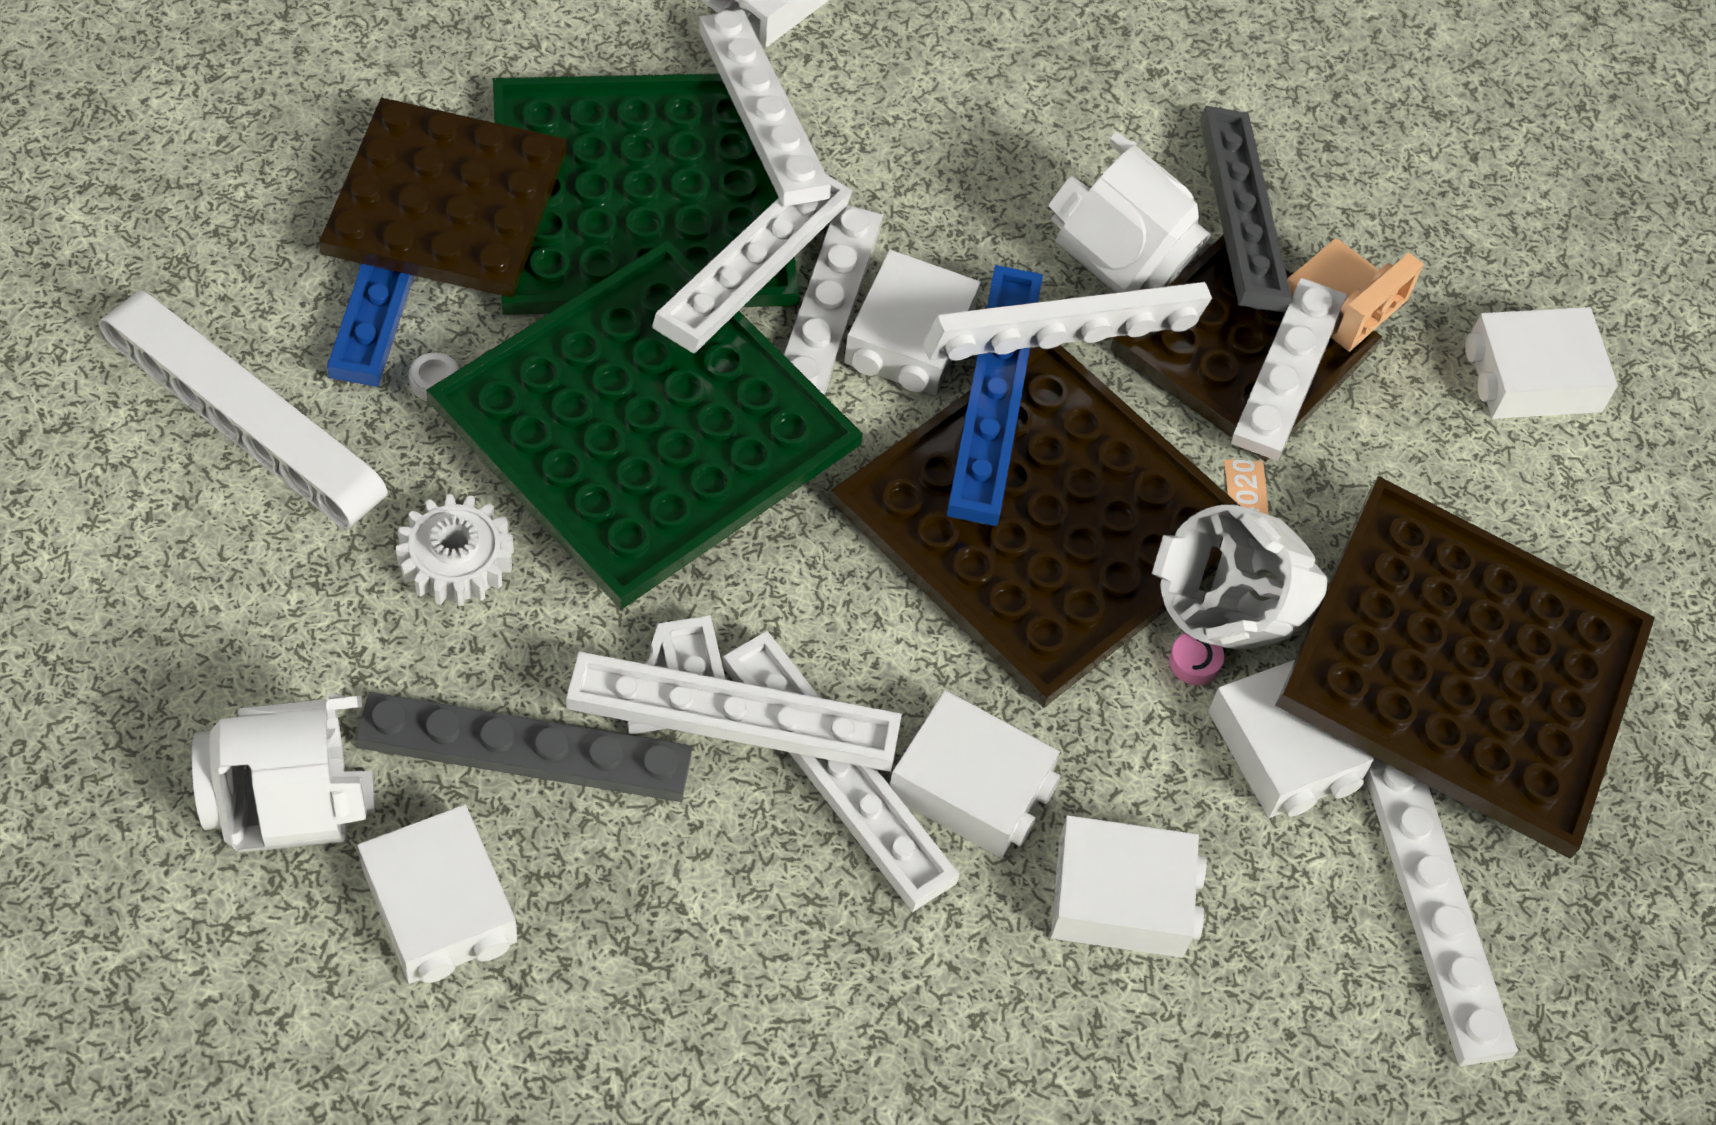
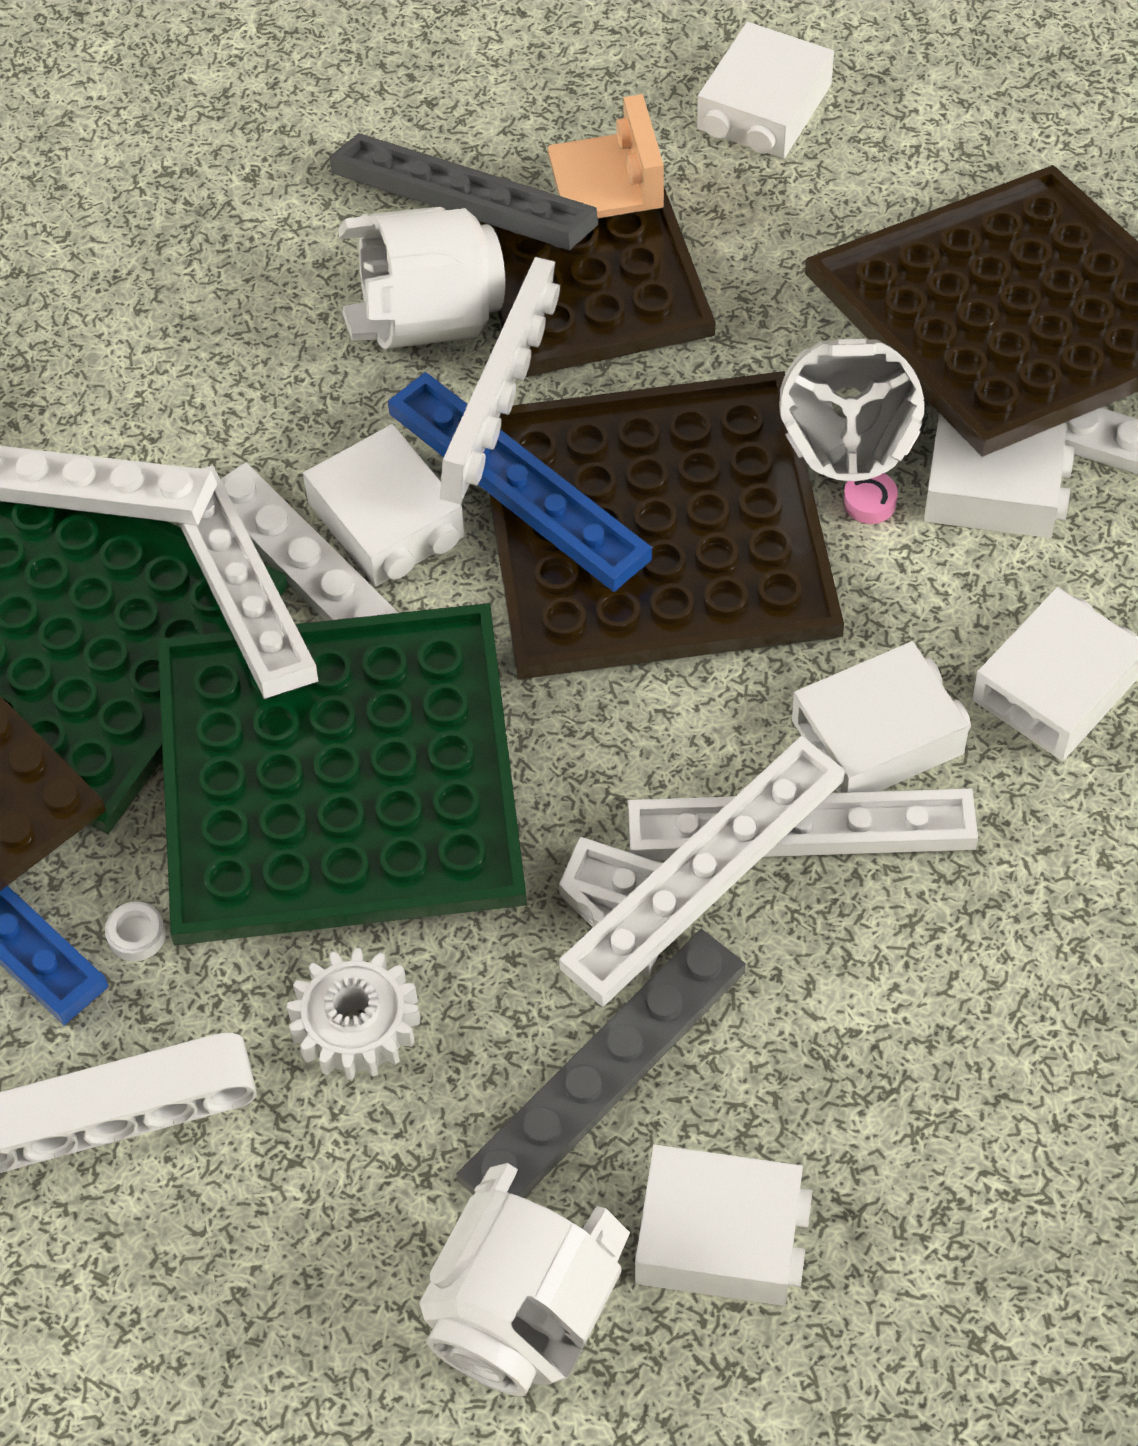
camera: 45 degrees left, 0 degrees up
(1247, 484) = (724, 361): light nougat sticker -> none
(1288, 369) = (655, 257): white plate -> none

